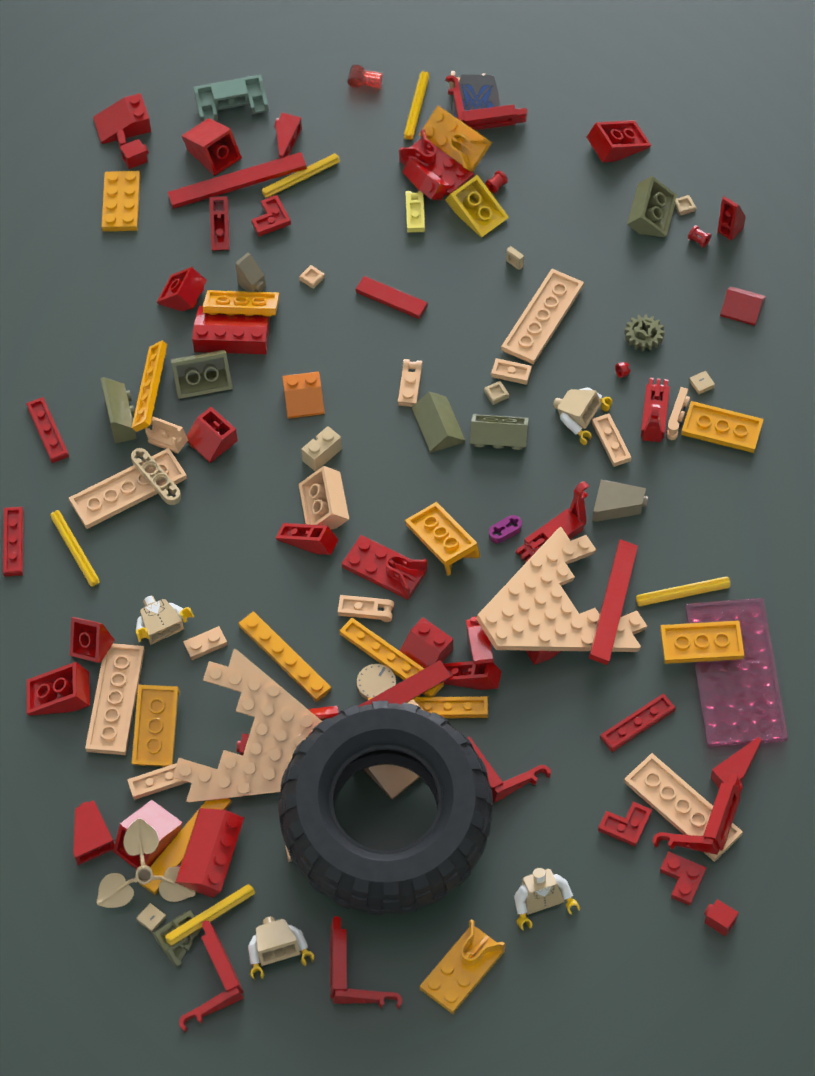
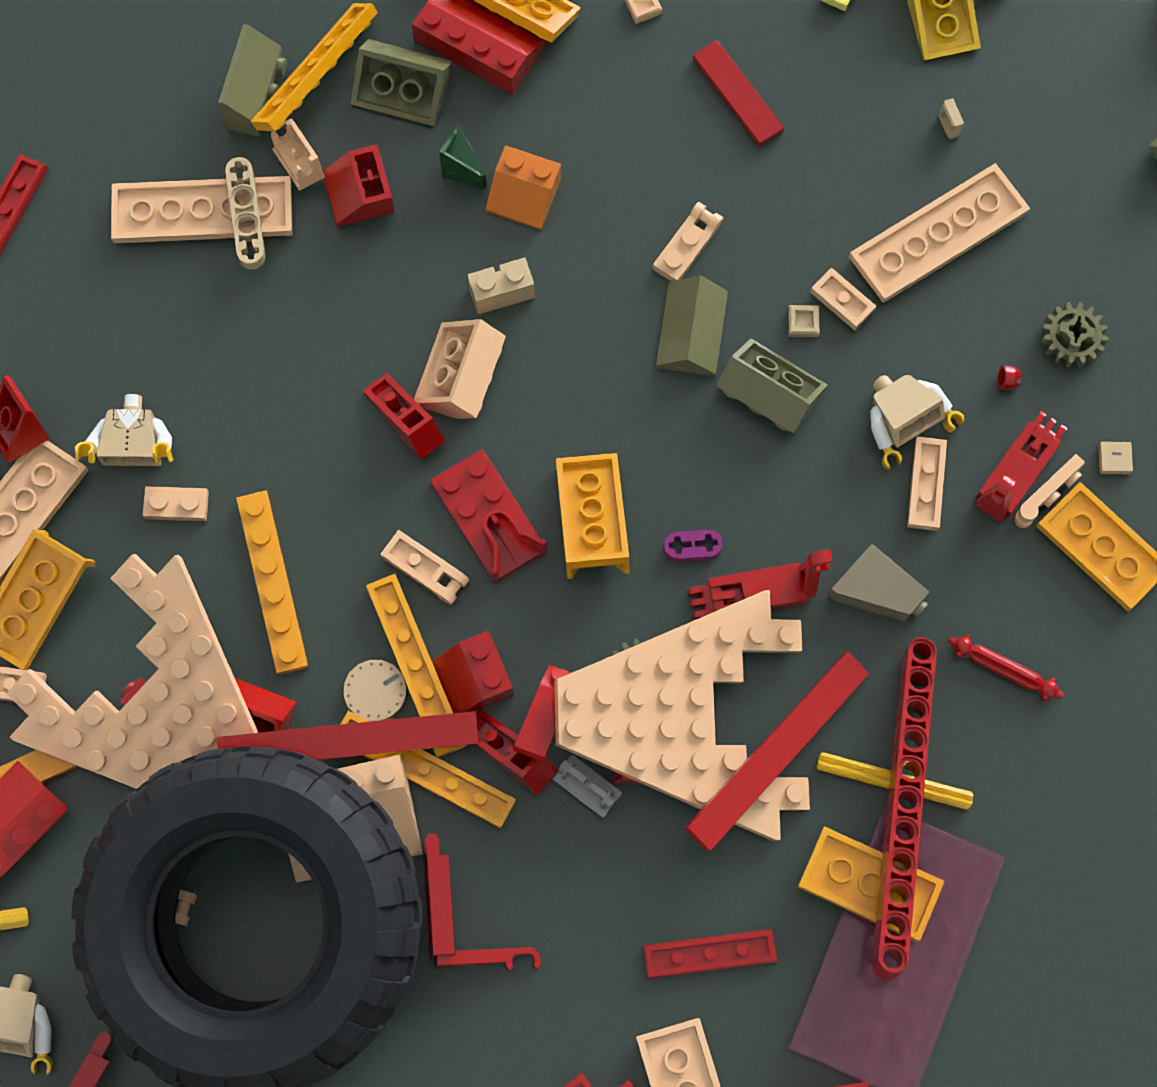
camera: 25 degrees right, 15 degrees up
(47, 430) = (145, 62): red tile -> none
(75, 548) = (80, 265): yellow axle -> none
(262, 398) = (460, 161): none -> dark green slope
(521, 673) = (587, 786): none -> light grey hinge
(697, 595) = (900, 818): none -> red beam
(707, 509) = (1006, 667): none -> red wheel

